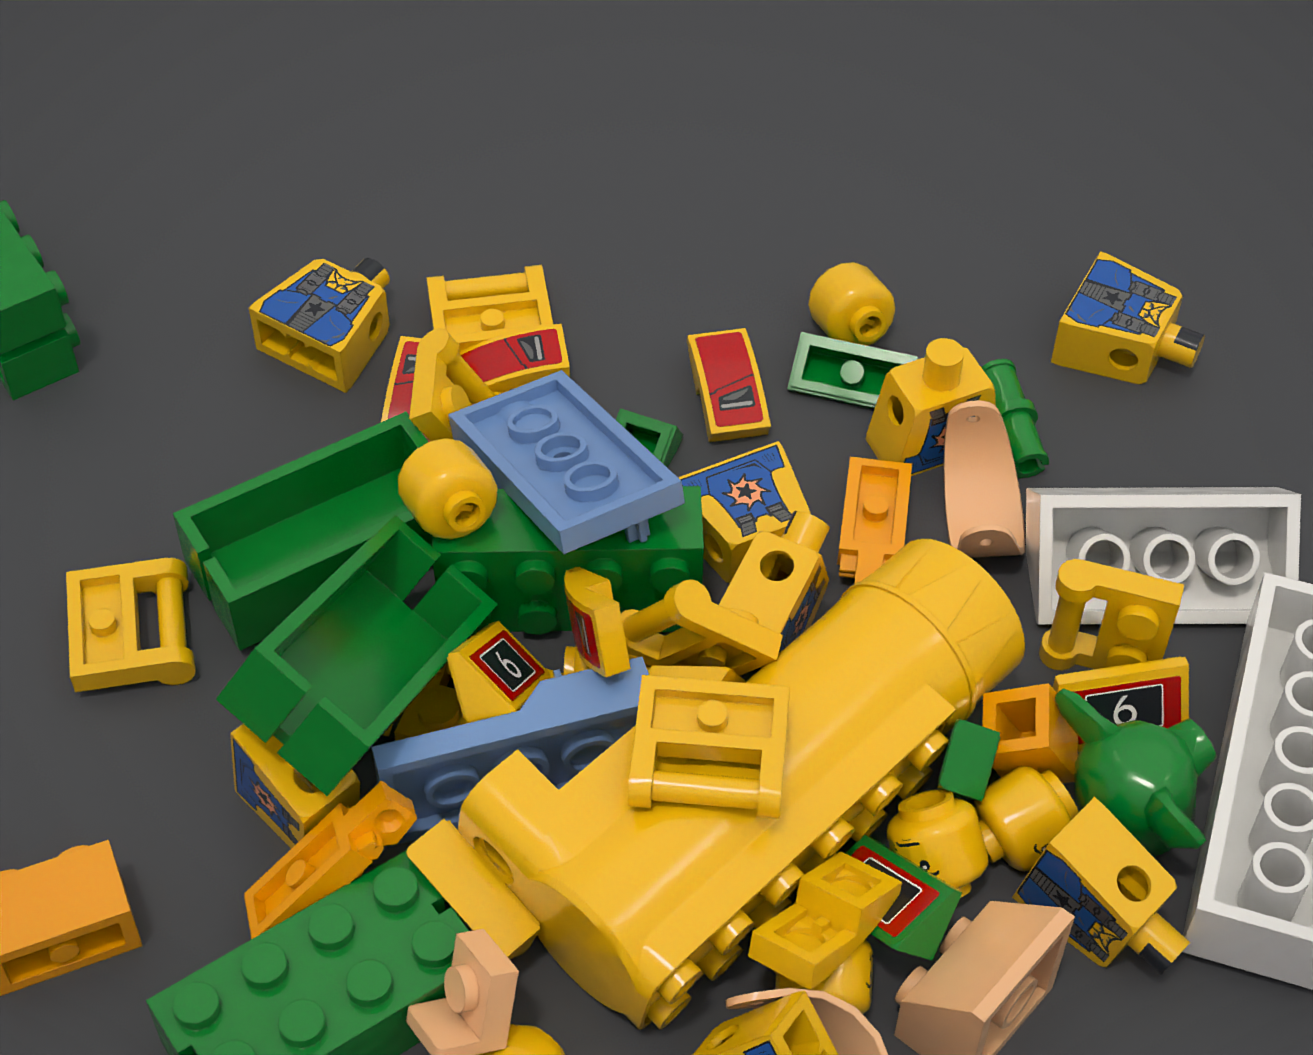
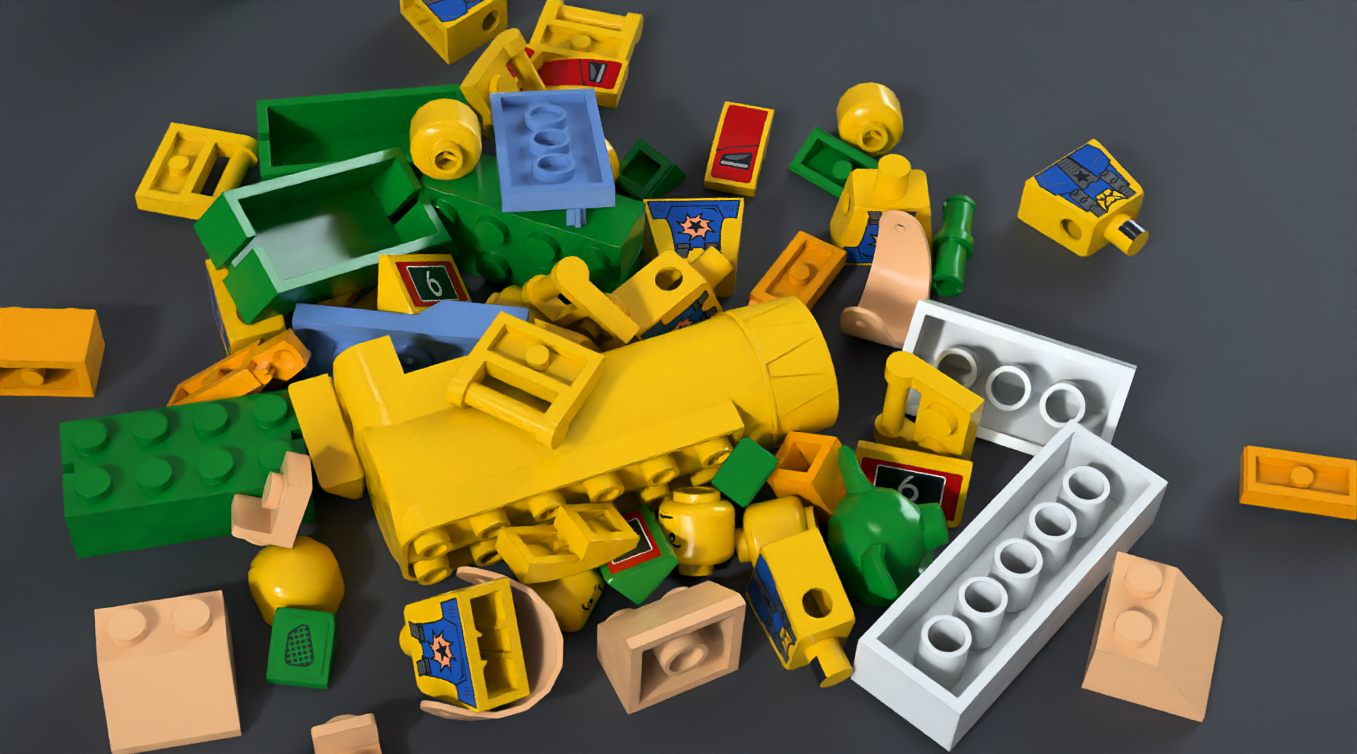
camera: 20 degrees right, 0 degrees up
(596, 622) = (507, 270): yellow slope -> none

